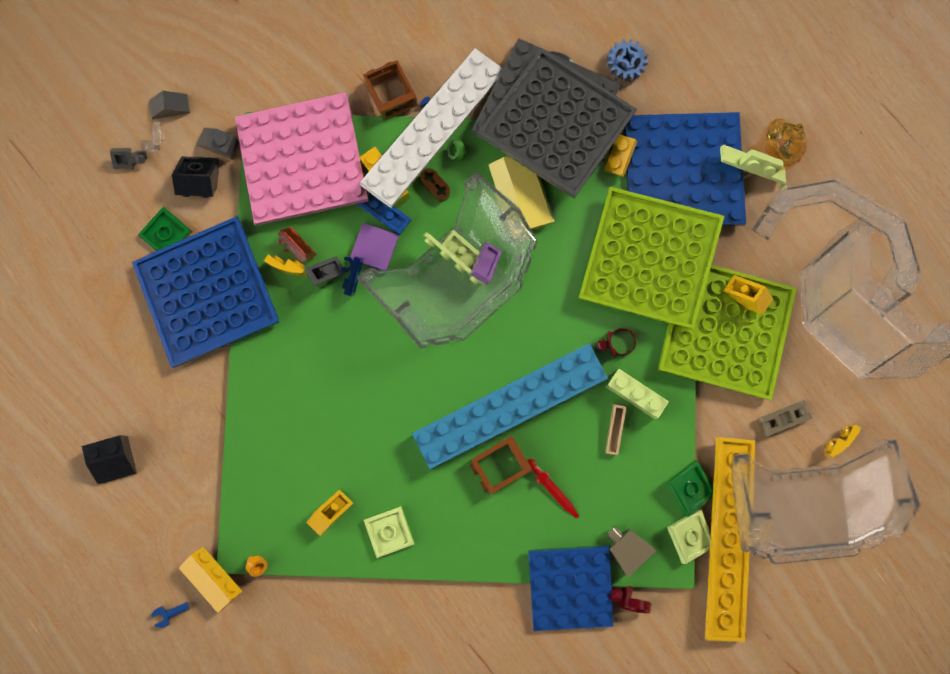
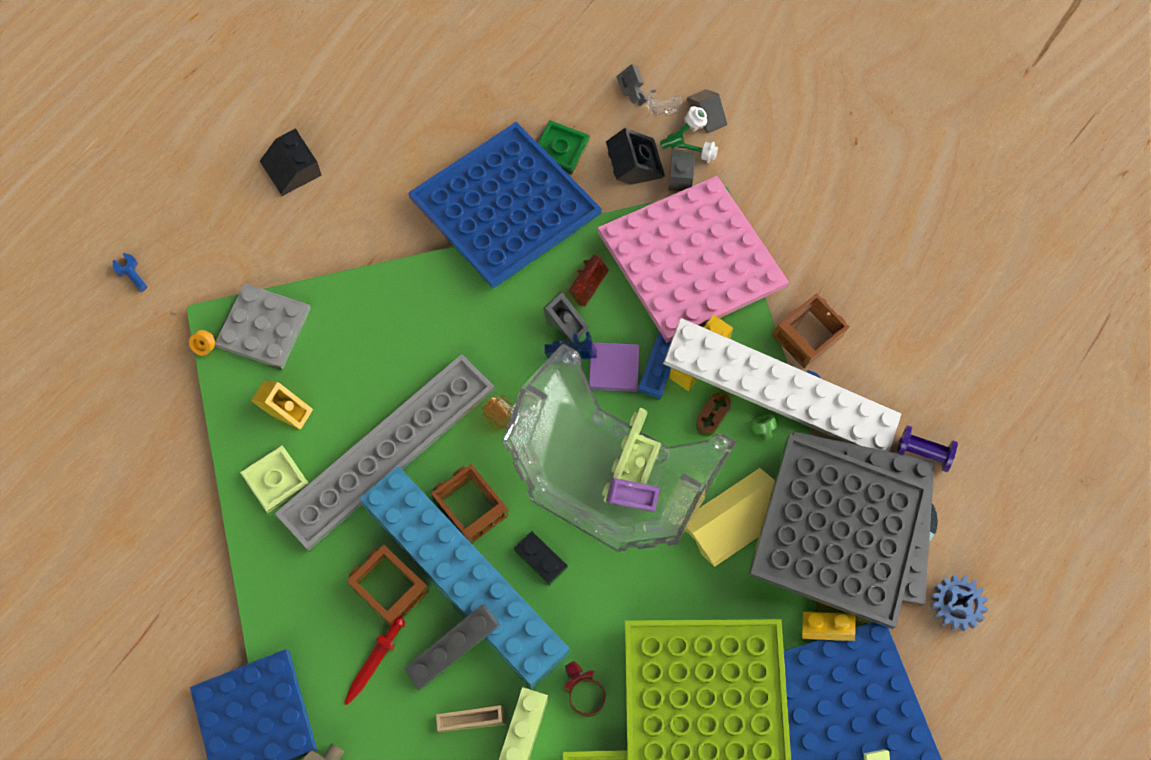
camera: 70 degrees right, 15 degrees down
(185, 115) = (693, 120): none -> plant
(210, 579) = (176, 300): yellow brick -> none
(255, 513) = (263, 326): none -> light grey plate
(293, 268) = (560, 277): yellow slope -> none
(388, 344) = (498, 412): none -> clear orange head
(392, 440) = (391, 444): none -> light grey plate
(437, 404) = (485, 522): none -> dark orange window
(510, 346) = (540, 558): none -> black plate
(516, 28) = (927, 448): none -> dark purple hose
(563, 428) = (452, 647): none -> dark grey plate

